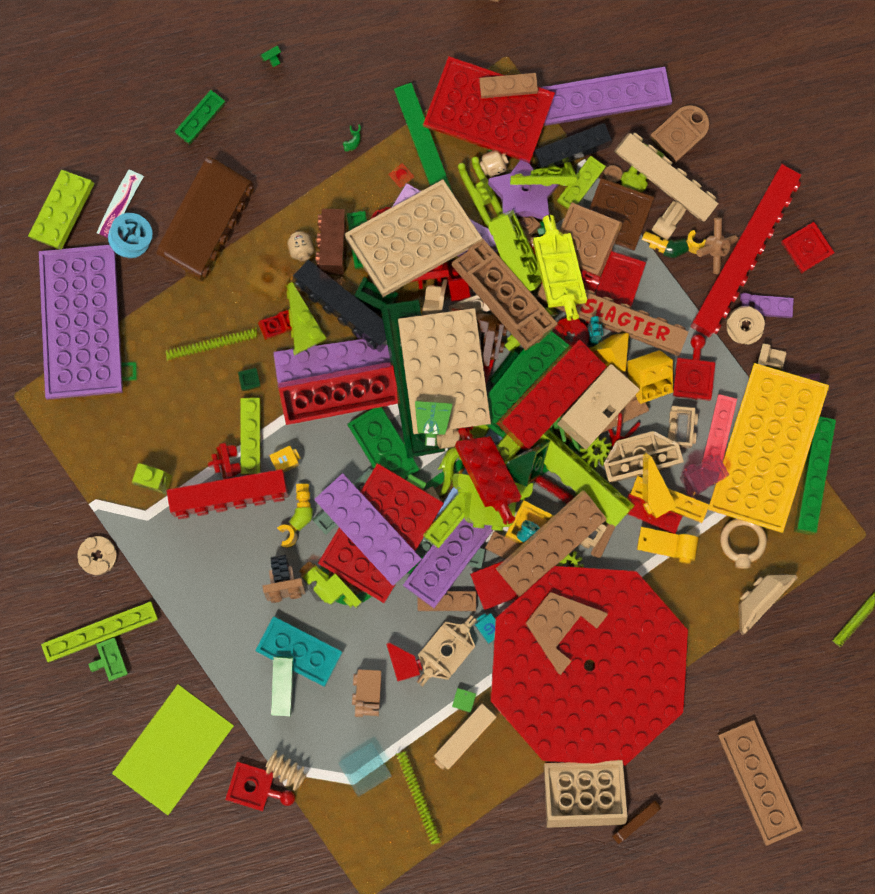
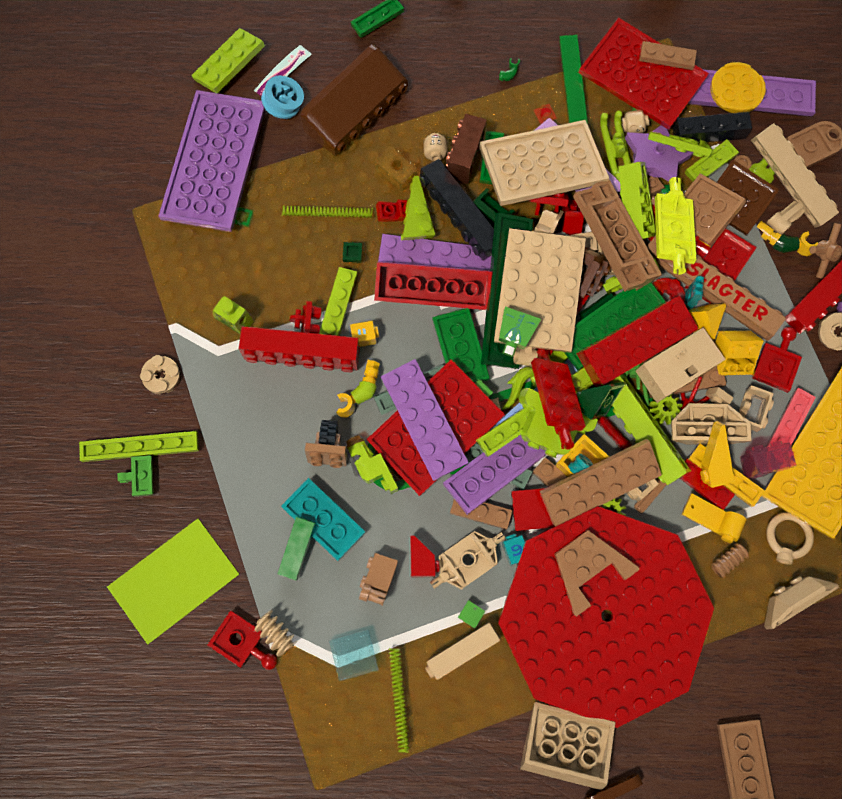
camera: 15 degrees right, 5 degrees down
(588, 98) = (737, 88): none -> yellow tile
(644, 425) = (718, 396): none -> tan plate
(692, 580) = (730, 560): none -> medium nougat piece

